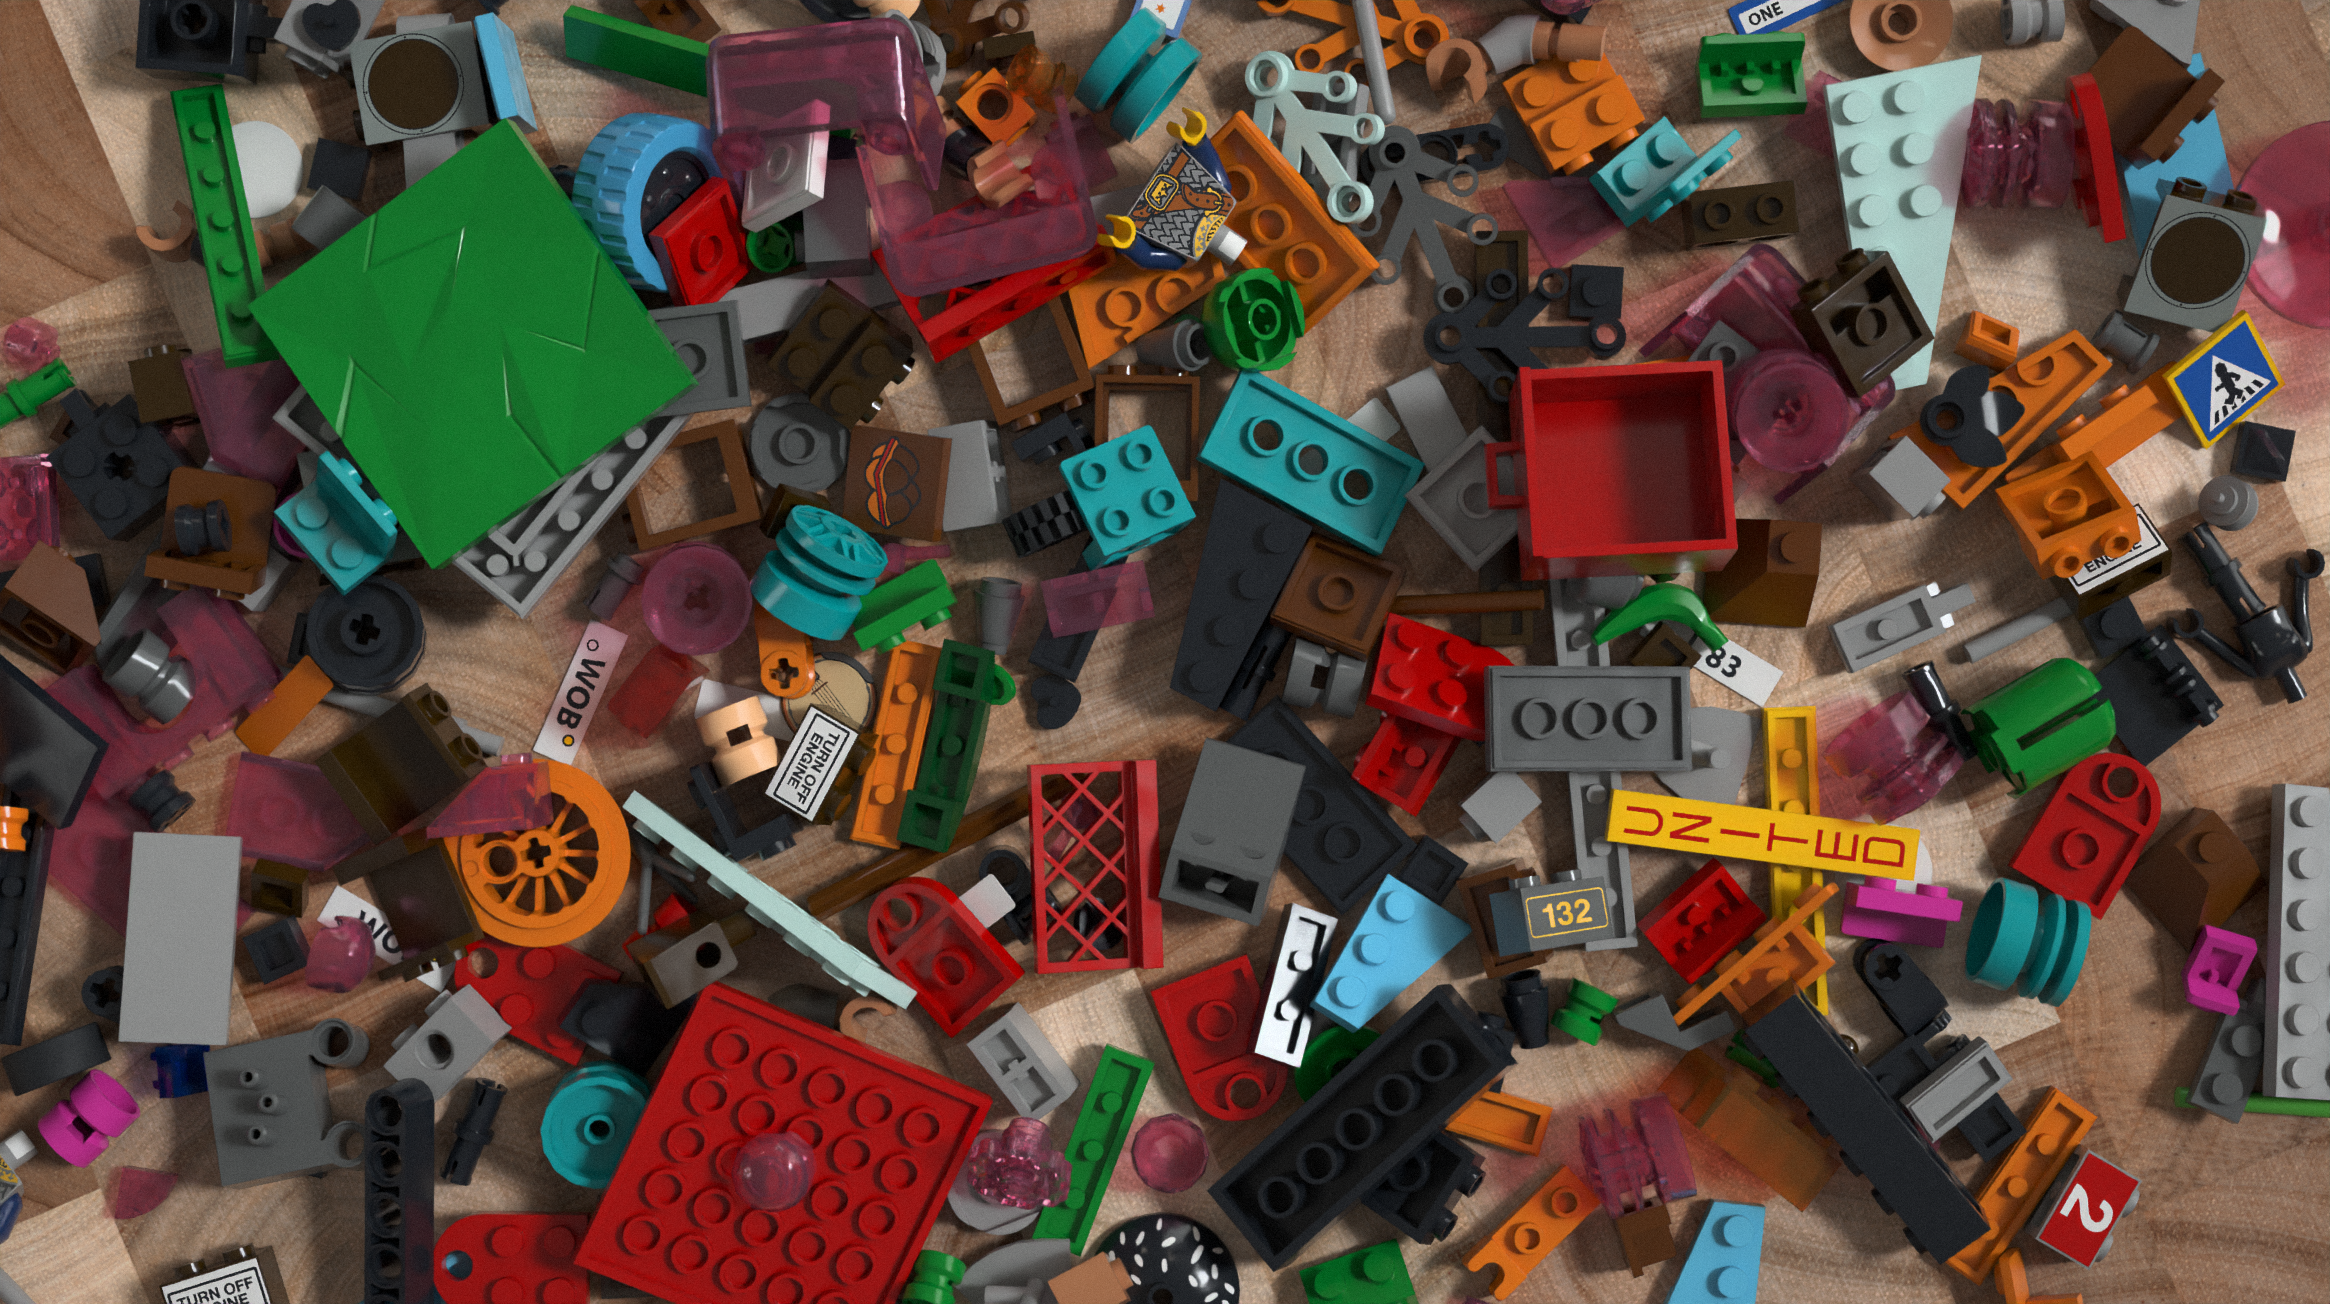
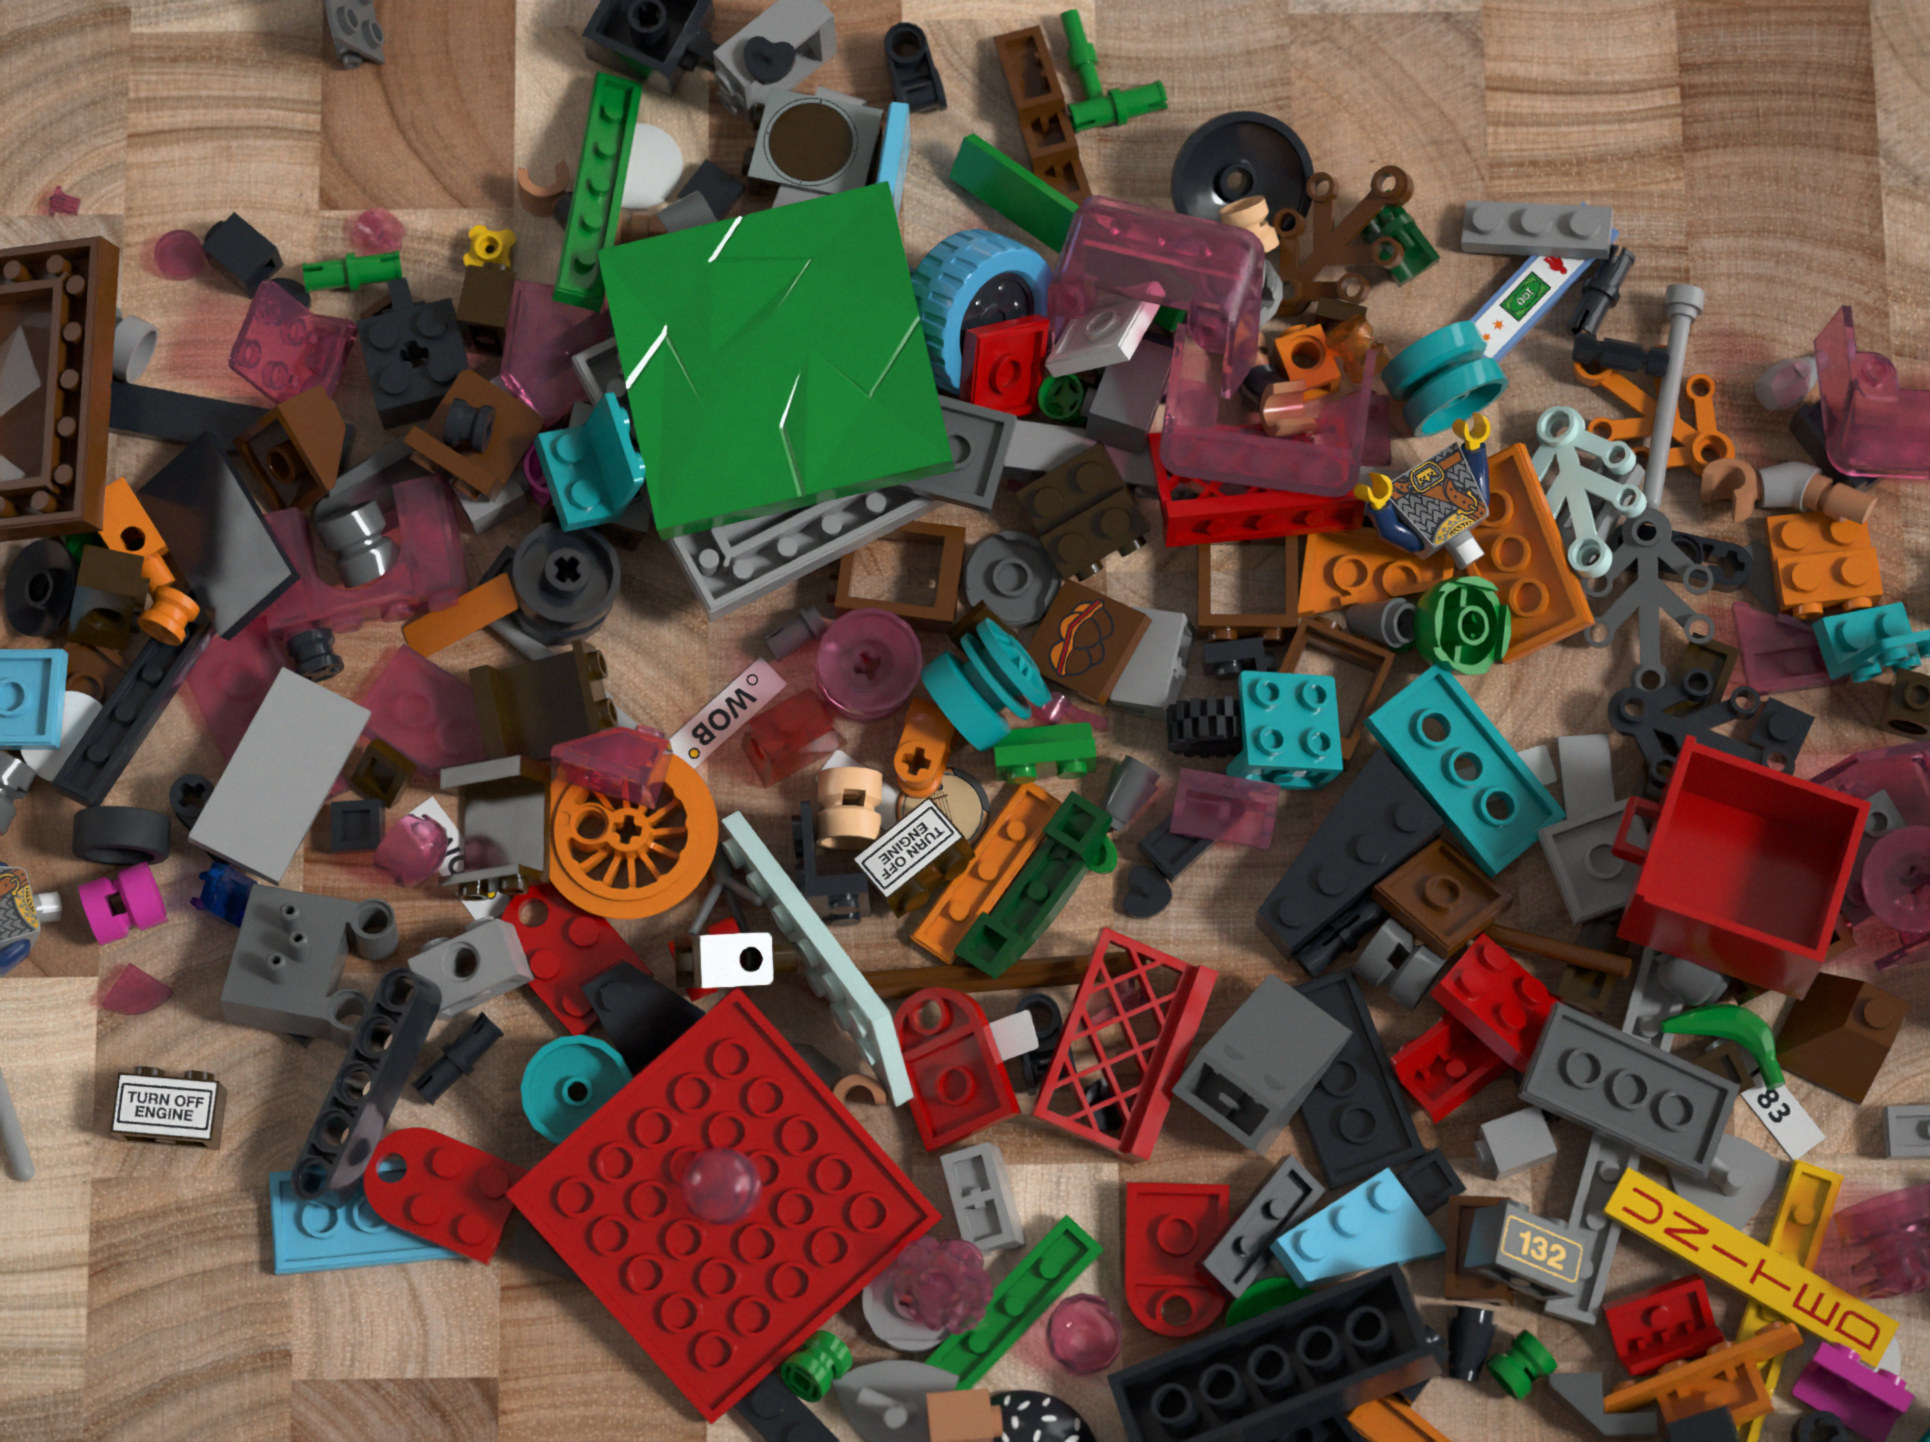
camera: 25 degrees right, 15 degrees down
(162, 320) = (483, 238): none -> yellow plate

